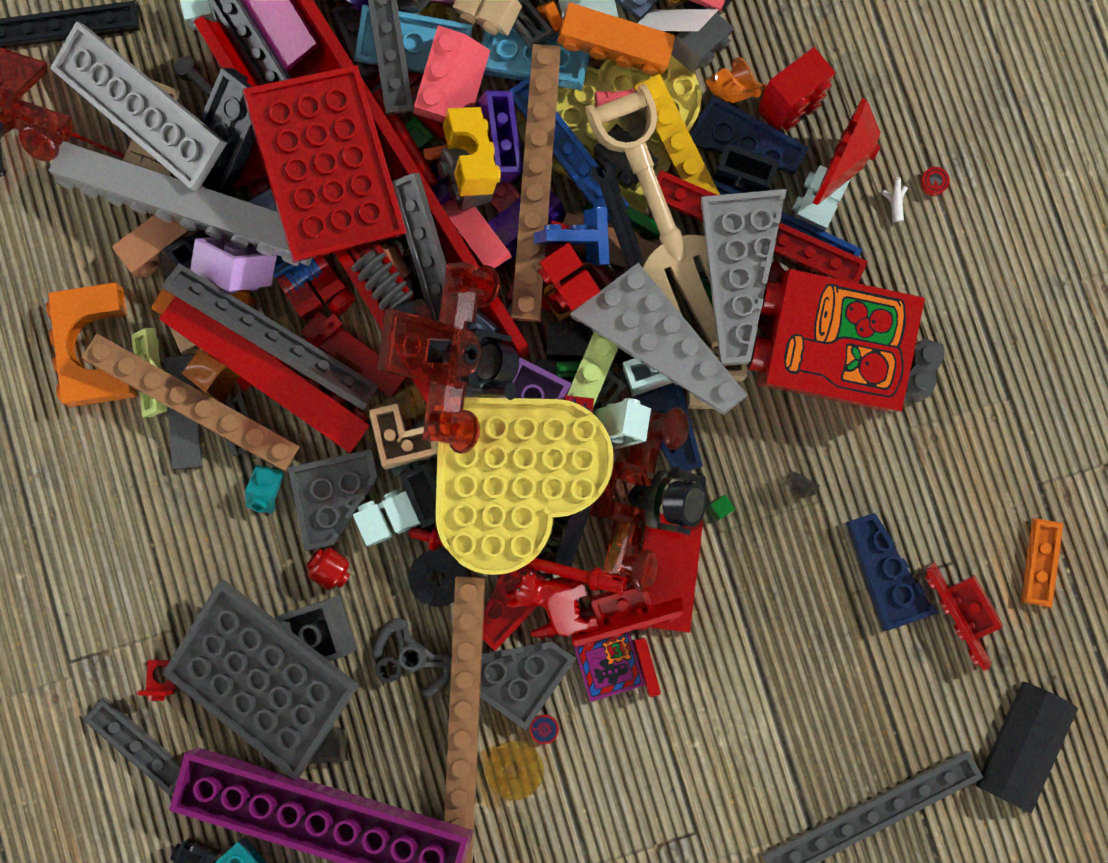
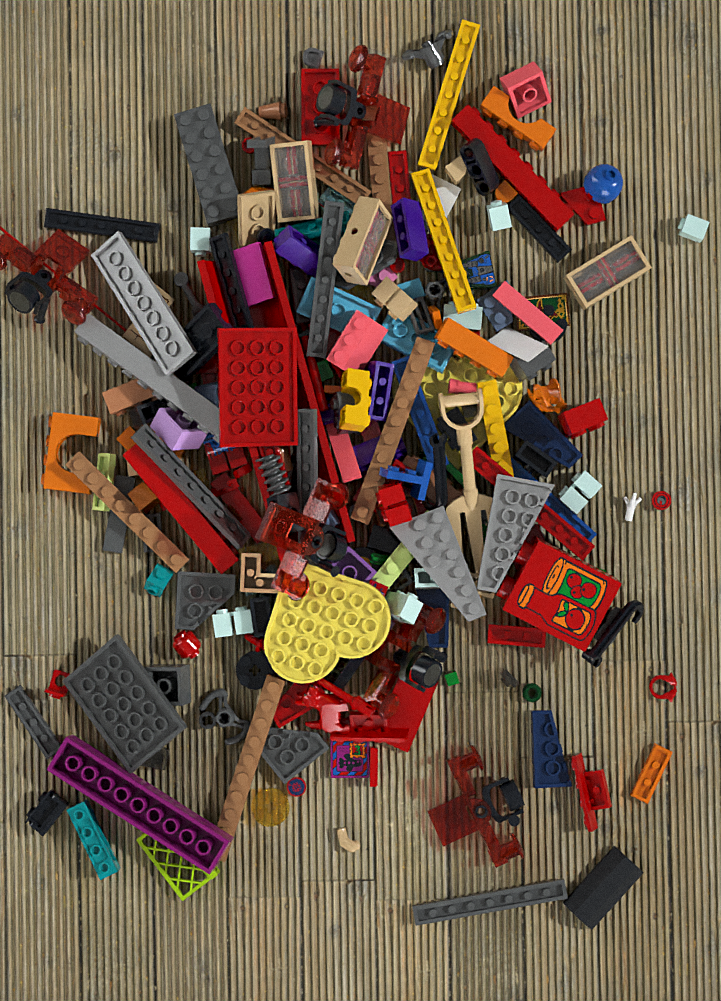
camera: 20 degrees right, 5 degrees up
(639, 790) = (345, 842): none -> tan arm
(786, 716) = (454, 822): none -> clear red piece
(793, 422) = (516, 636): none -> red plate
(848, 496) = (538, 692): none -> dark green plate
(852, 151) = (608, 469): red wedge -> none
(916, 414) = (593, 655): none -> black piece
(1032, 445) = (668, 695): none -> red piece

